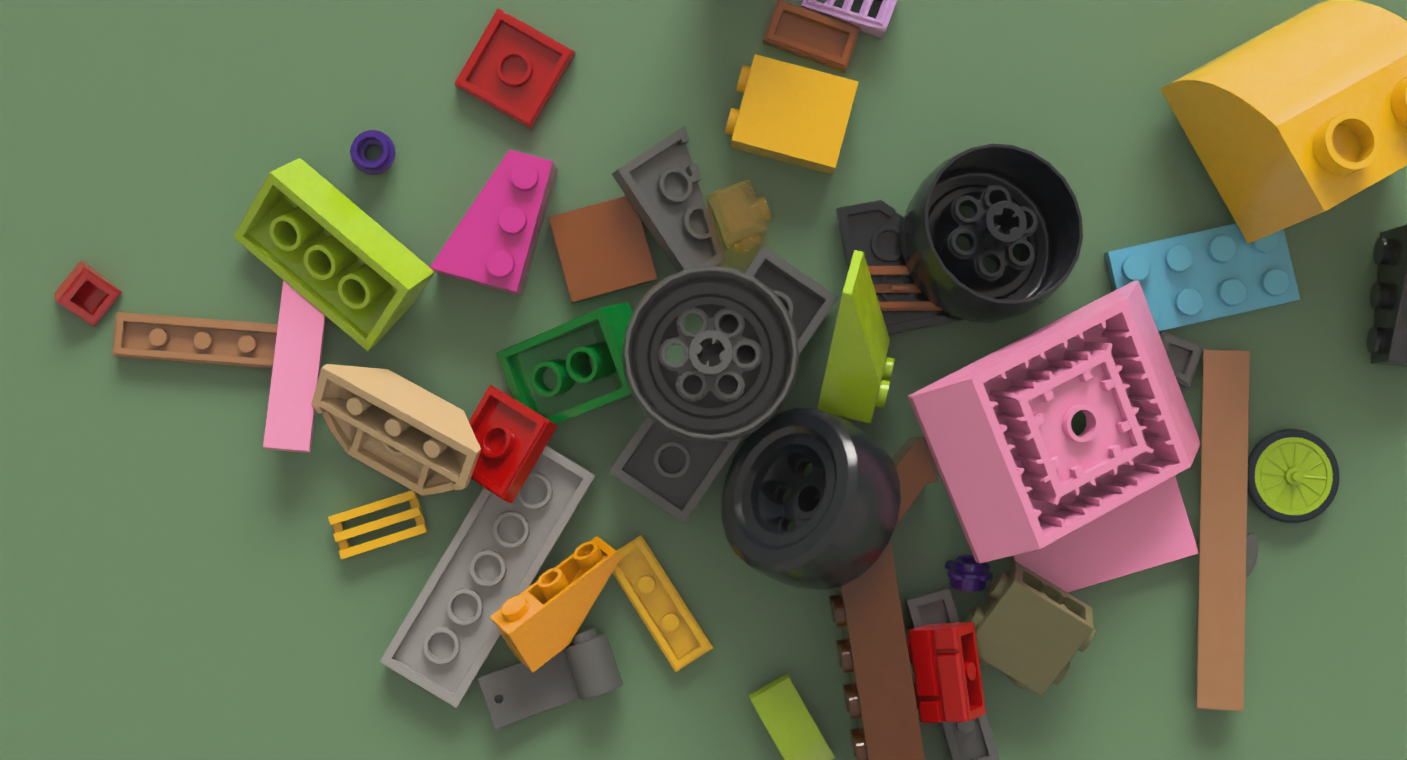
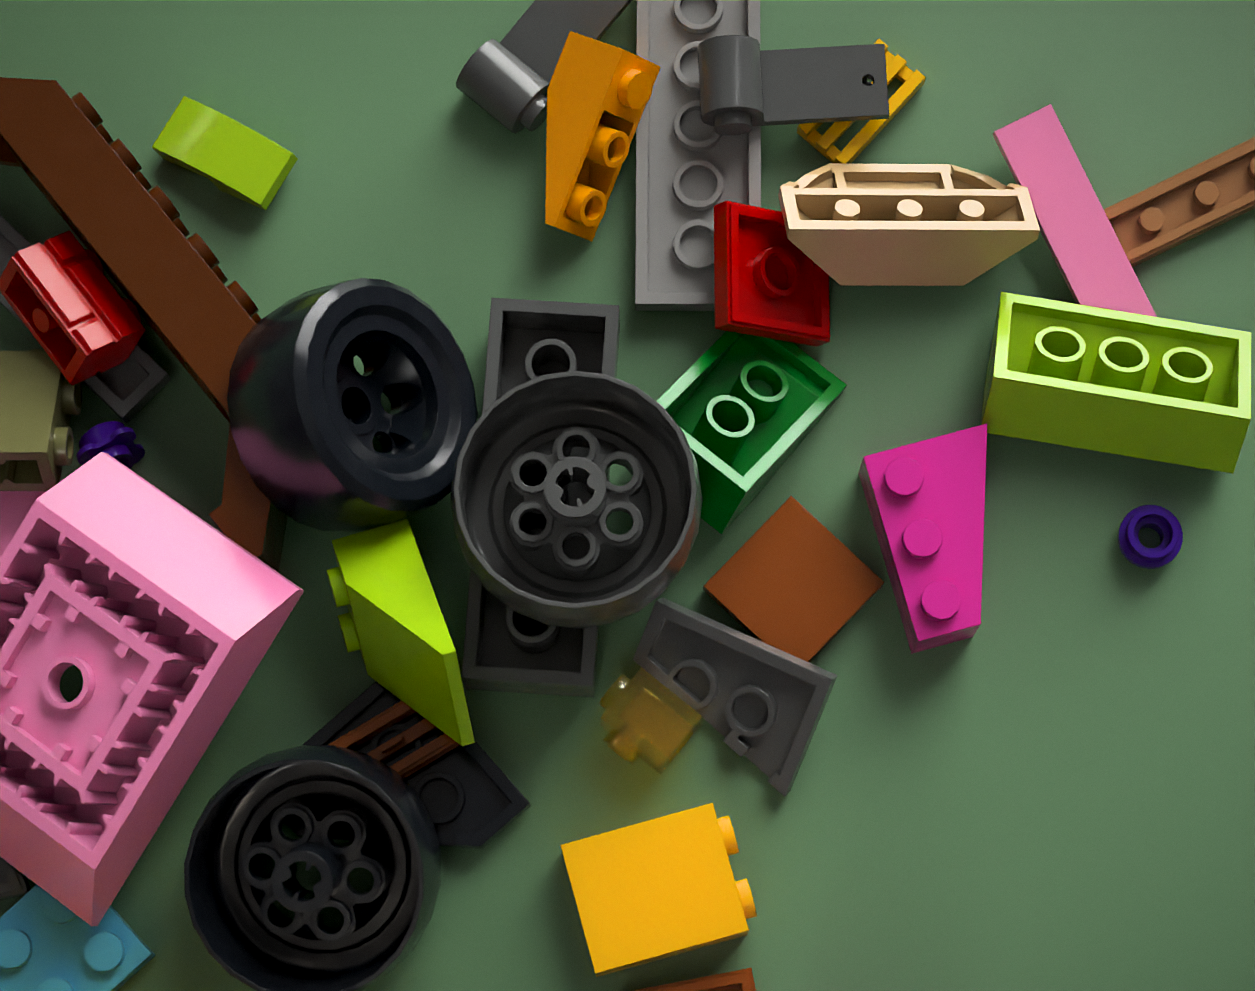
camera: 155 degrees right, 10 degrees down
(416, 557) = (788, 86): none -> dark grey door
(514, 69) = (1042, 745): red tile -> none
(660, 604) = (467, 205): yellow tile -> none

